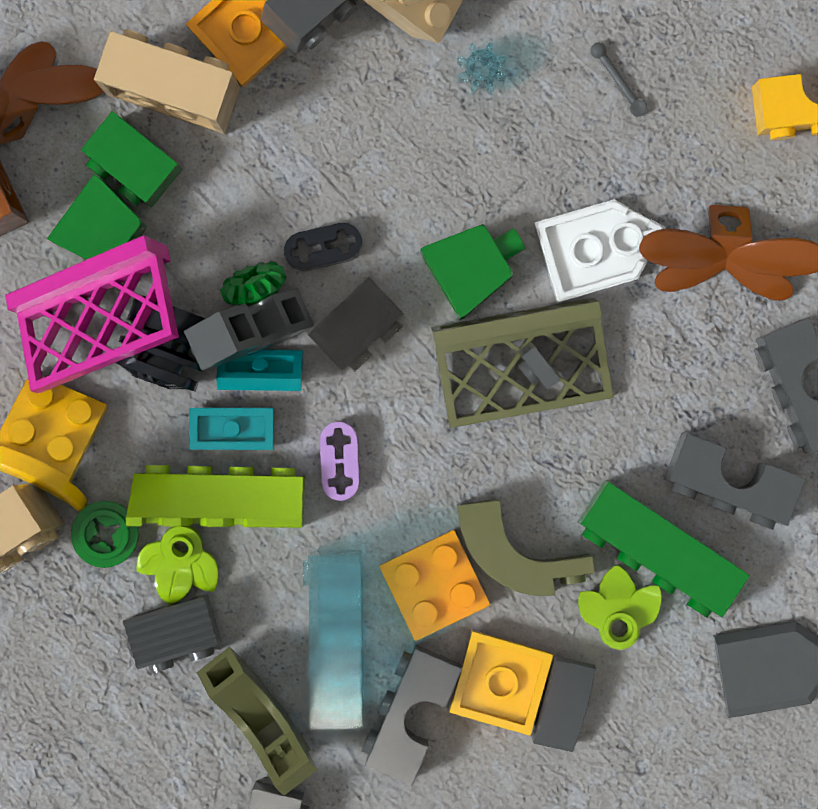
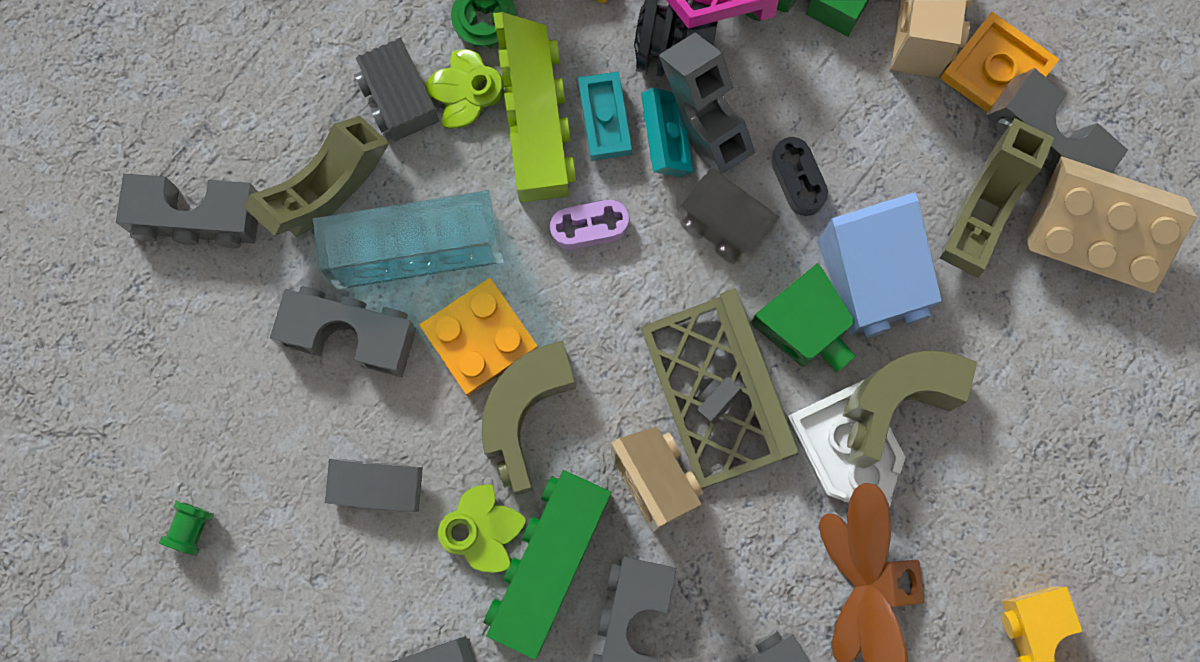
camera: 80 degrees right, 10 degrees down
(253, 283) = (752, 110): green gear -> none
(380, 67) = (994, 195): none -> olive arch
(434, 187) = (881, 264): none -> light blue slope
(486, 58) = (1019, 291): clear light blue gear -> none
(501, 682) = (387, 417): yellow plate -> none
(548, 204) = (920, 376): none -> olive arch
(603, 438) = (654, 476): none -> tan slope
(638, 107) = (1005, 468): dark grey hinge -> none

